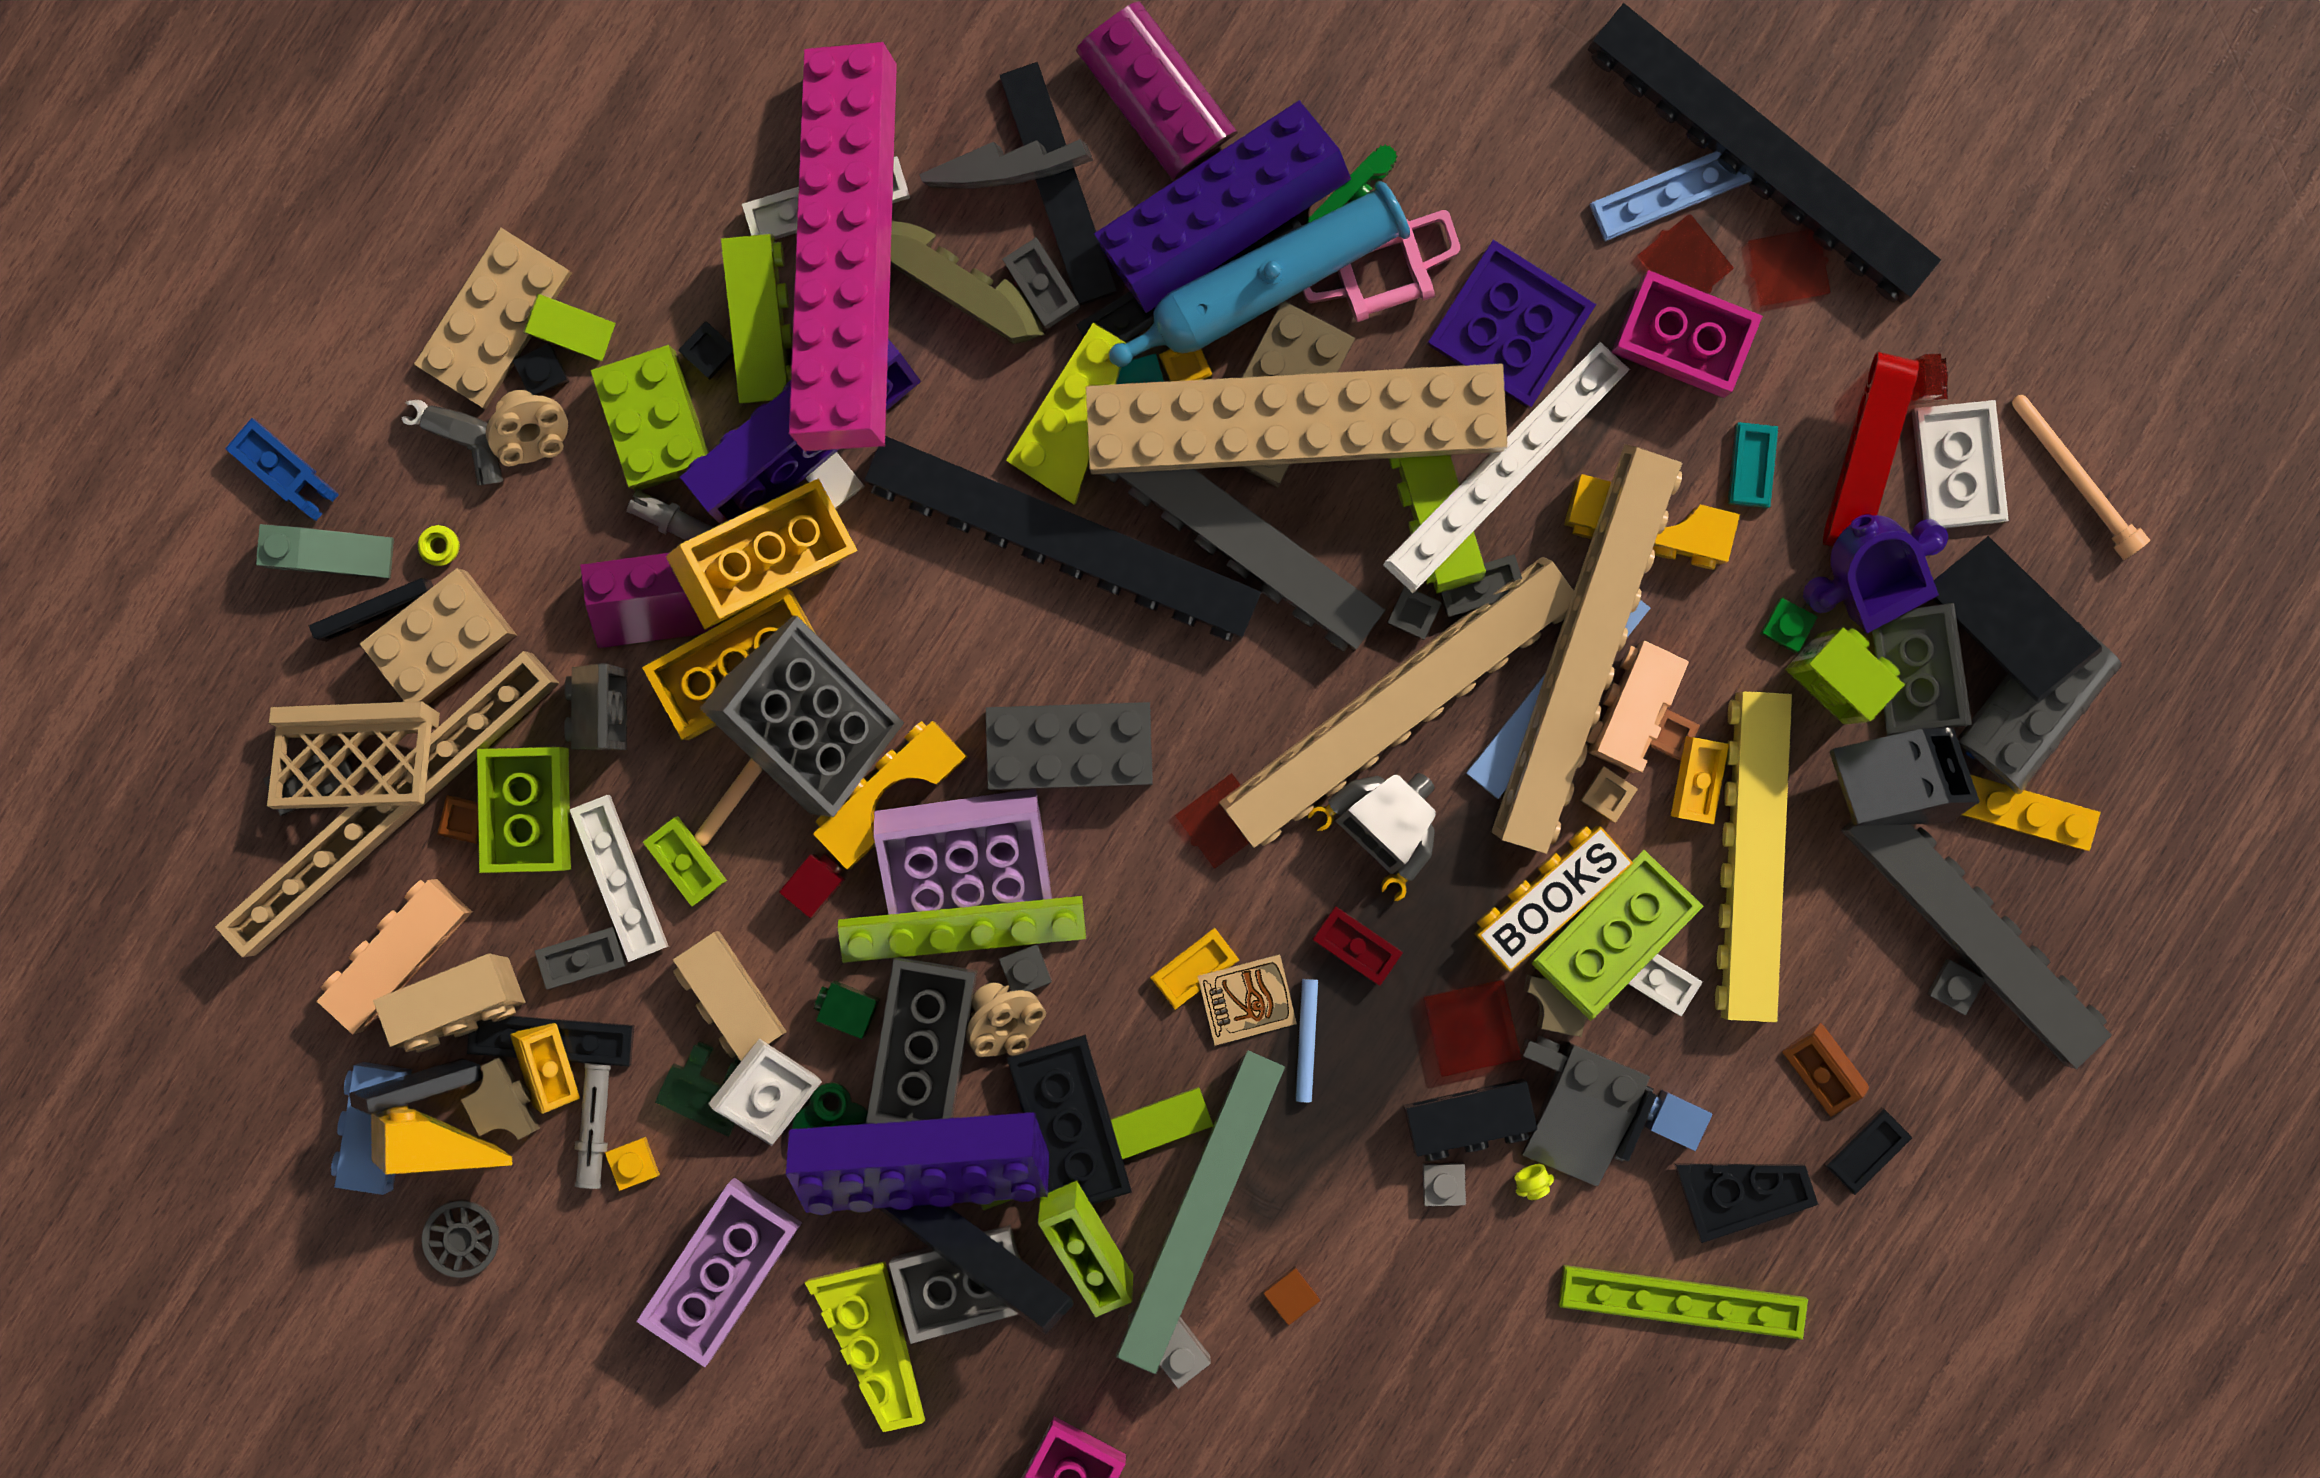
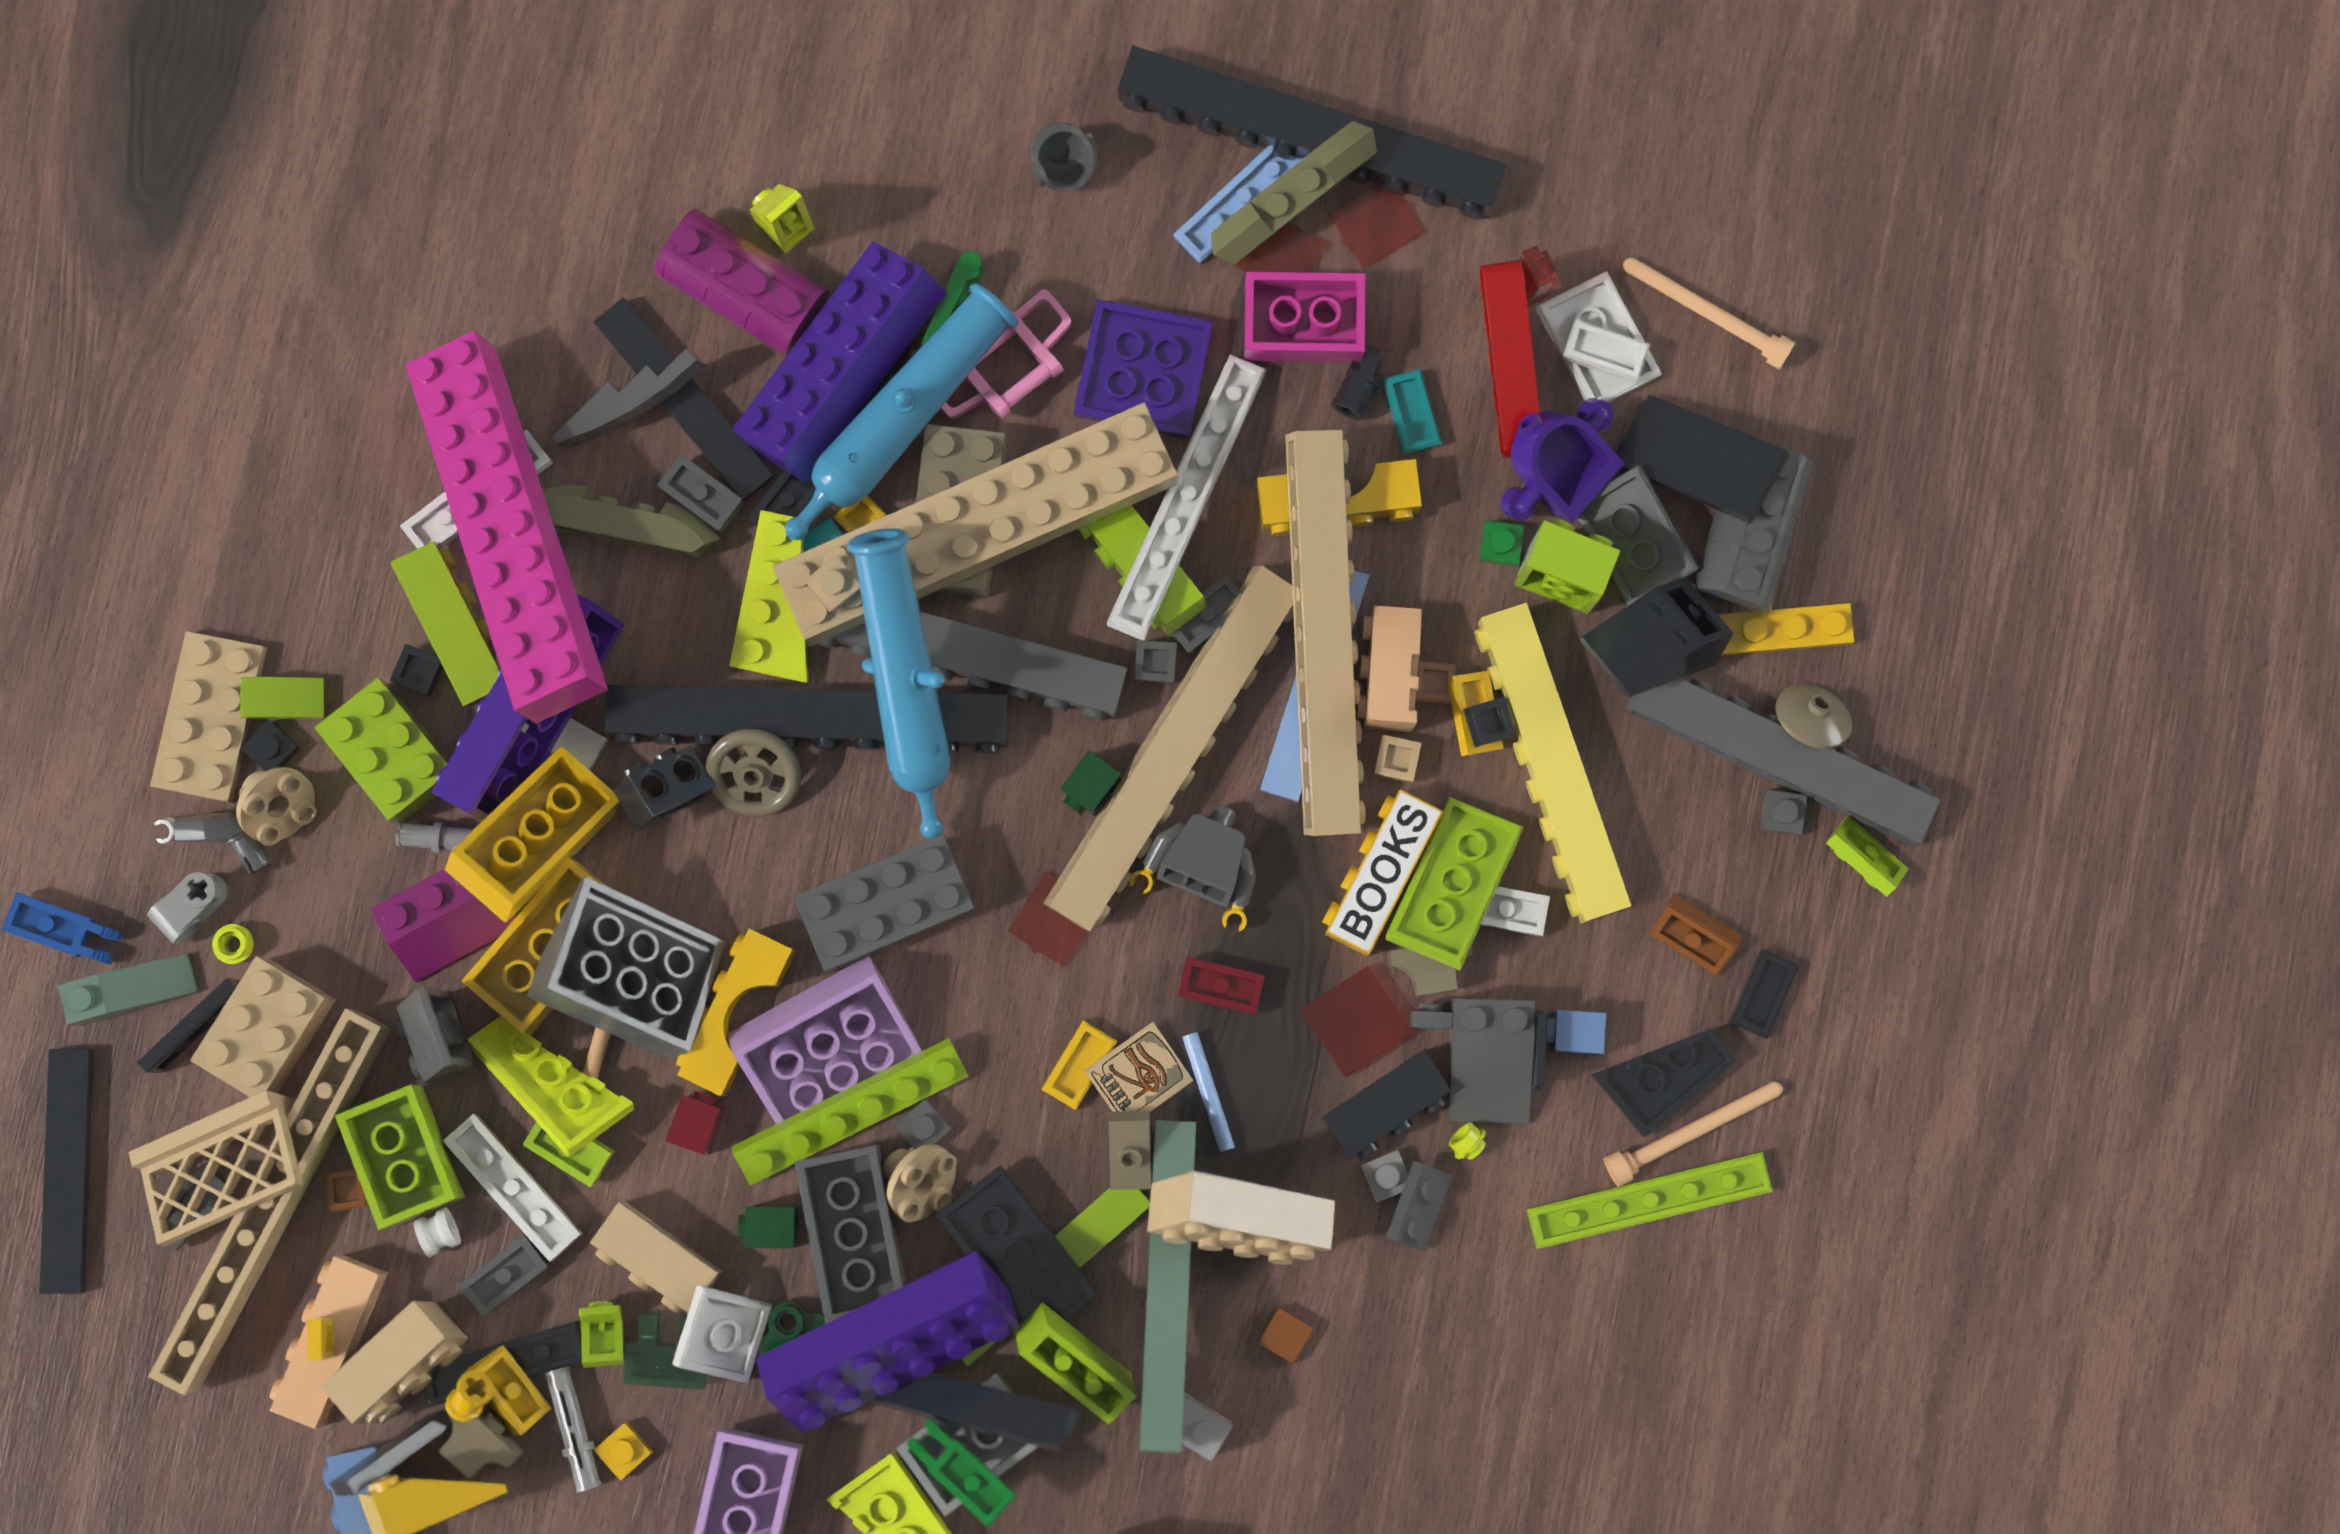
camera: 20 degrees left, 5 degrees down
(205, 700) = (66, 1171): none -> black tile
(388, 953) = (320, 1338): none -> yellow tile
(403, 494) = (183, 910): none -> light grey piece
(498, 1068) = (467, 1400): none -> yellow bush
(532, 893) = (437, 1232): none -> white wheel
(652, 1049) = (602, 1334): none -> lime bracket
(691, 806) = (556, 1094): none -> neon yellow wing
(902, 558) = (666, 791): none -> black brick
(943, 1314) = (964, 1475): none -> green hinge
(1001, 544) = (753, 742): none -> dark tan plate
(1138, 427) = (833, 584): none -> tan plate
(1172, 533) = (902, 670): none -> dark azure piece
(1213, 1067) = (1129, 1150): none -> dark tan brick
(1220, 41) = (782, 216): none -> neon yellow slope
(1294, 1176) = (1240, 1217): none -> tan brick
(1306, 706) = (1089, 784): none -> dark green brick
(1464, 1225) = (1419, 1206): none -> dark grey plate
(1514, 87) = (1063, 157): none -> dark grey cap
(1673, 1261) = (1625, 1165): none -> light nougat piece
(1711, 795) = (1489, 722): none -> black plate
(1712, 420) = (1359, 385): none -> black hinge
(1724, 208) = (1293, 192): none -> olive brick
(1963, 478) = (1605, 351): none -> white tile
(2019, 1059) = (1867, 856): none -> lime plate
(2022, 907) = (1813, 716): none -> dark tan dish

